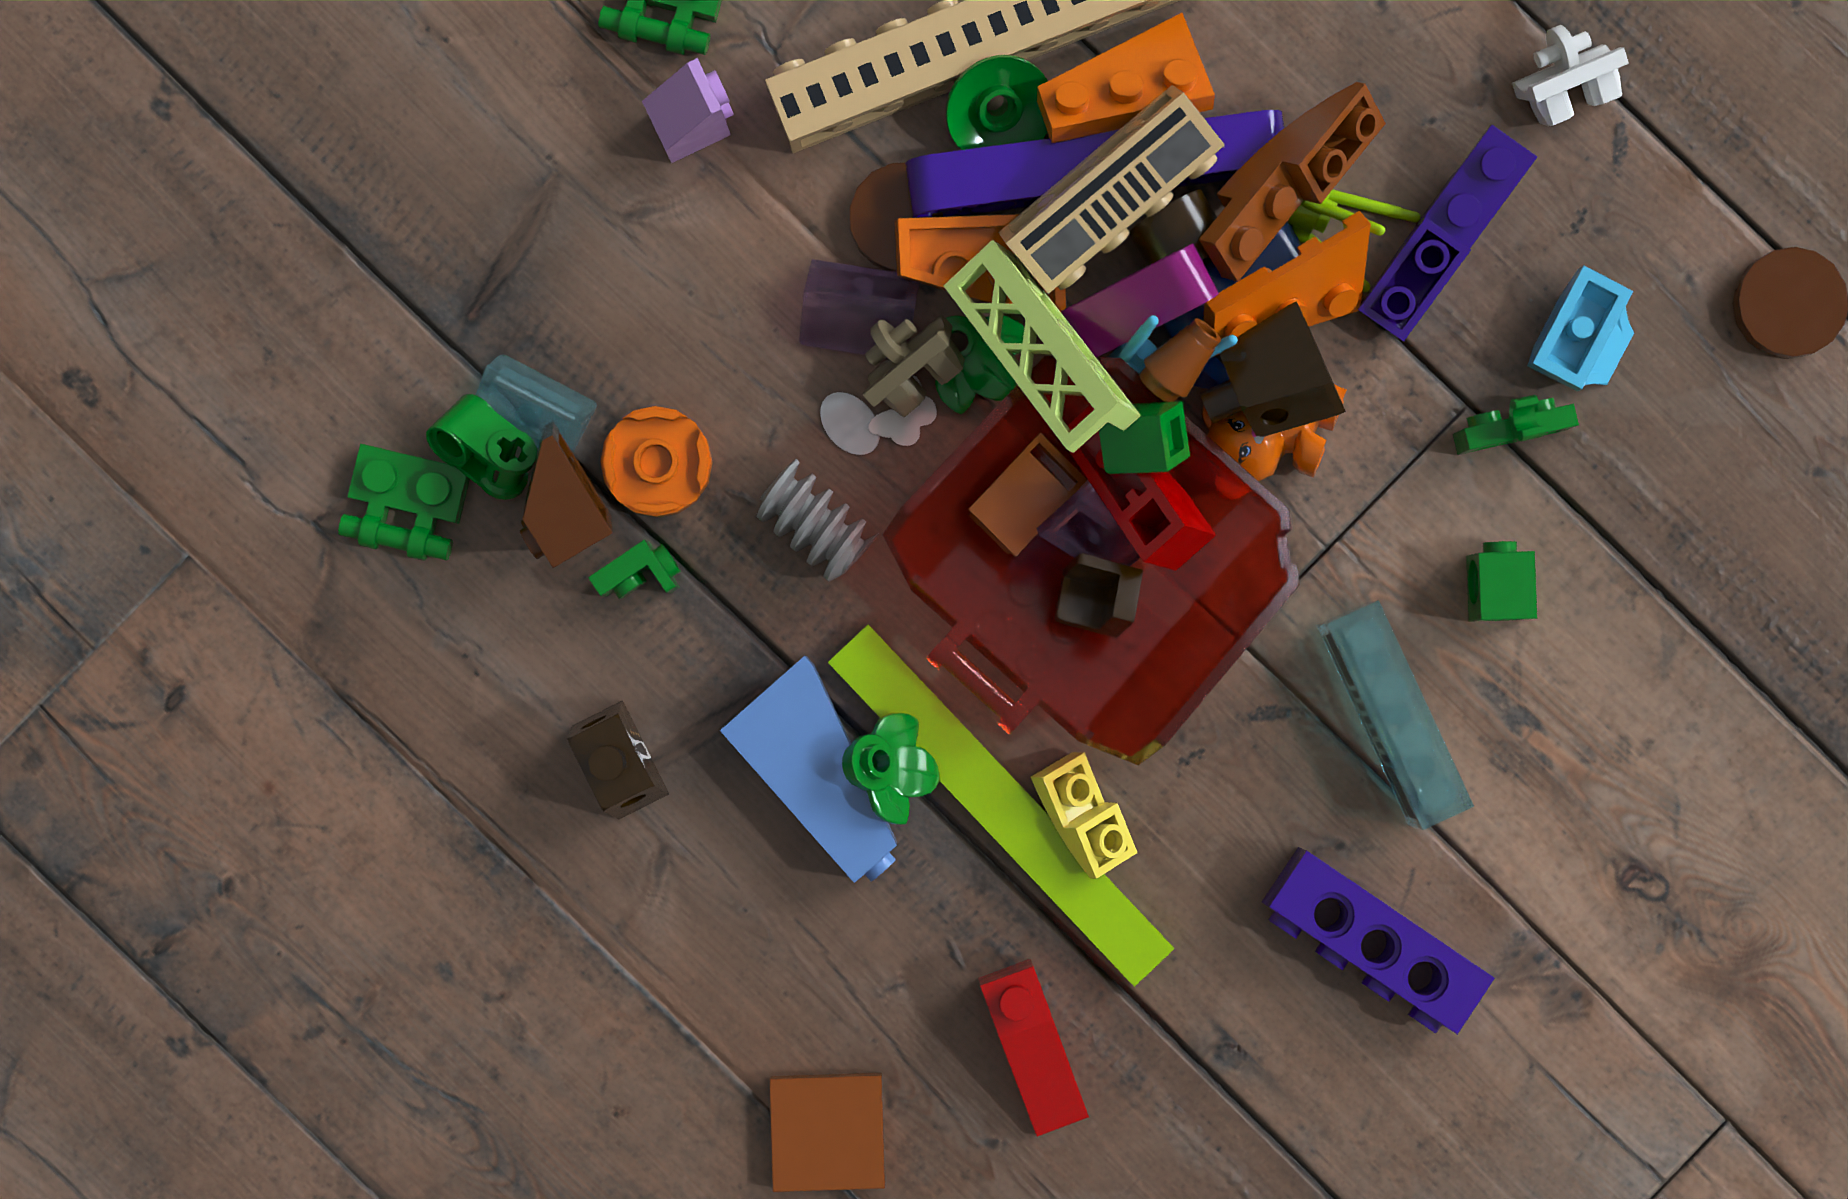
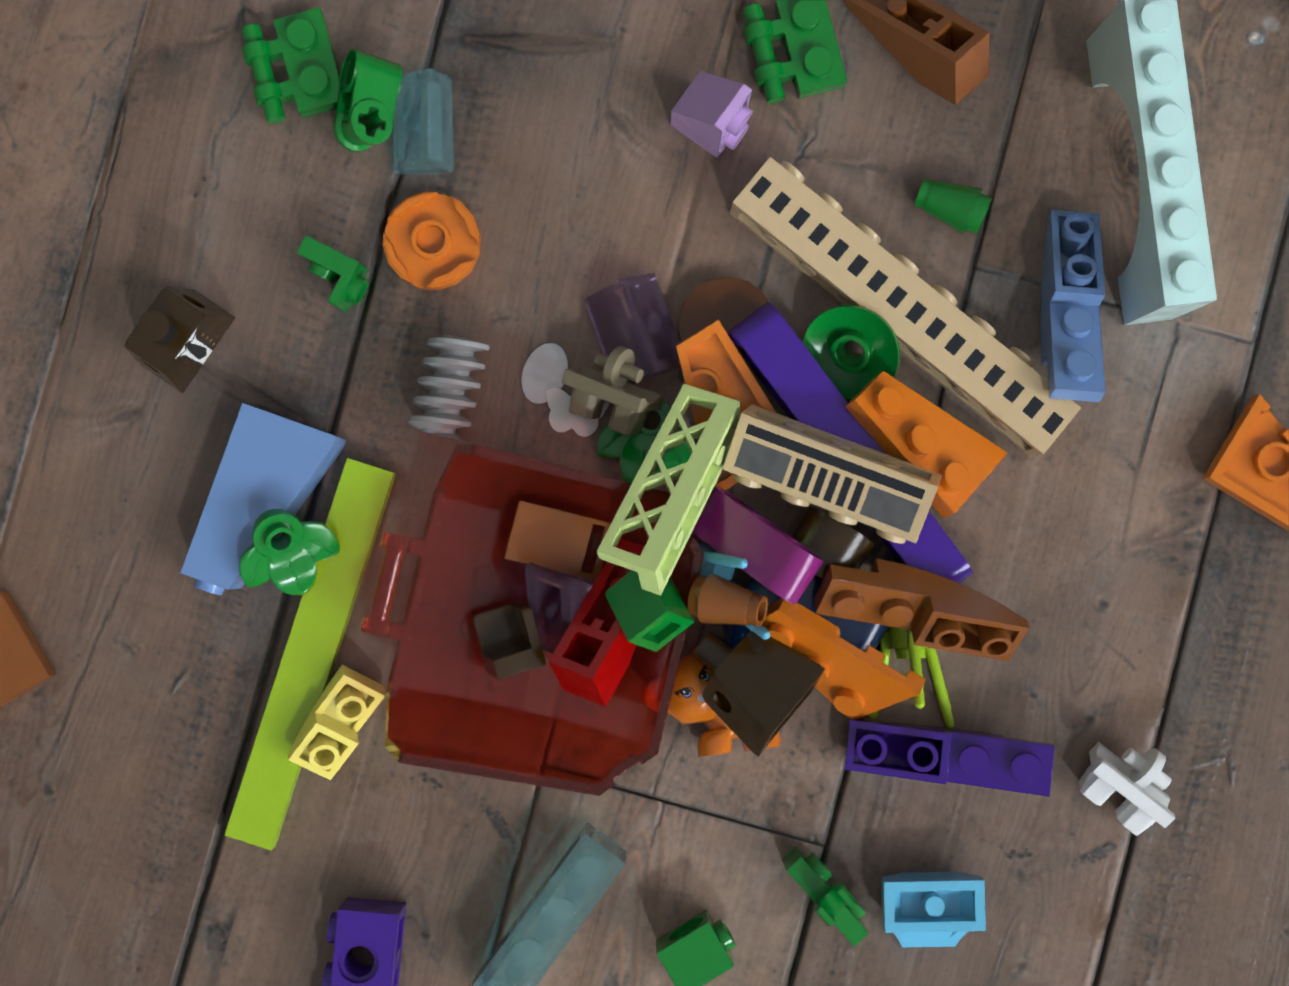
camera: 65 degrees right, 0 degrees up
(561, 503) = (351, 181): reddish brown slope -> none
(1033, 1047) = (136, 779): red slope -> none

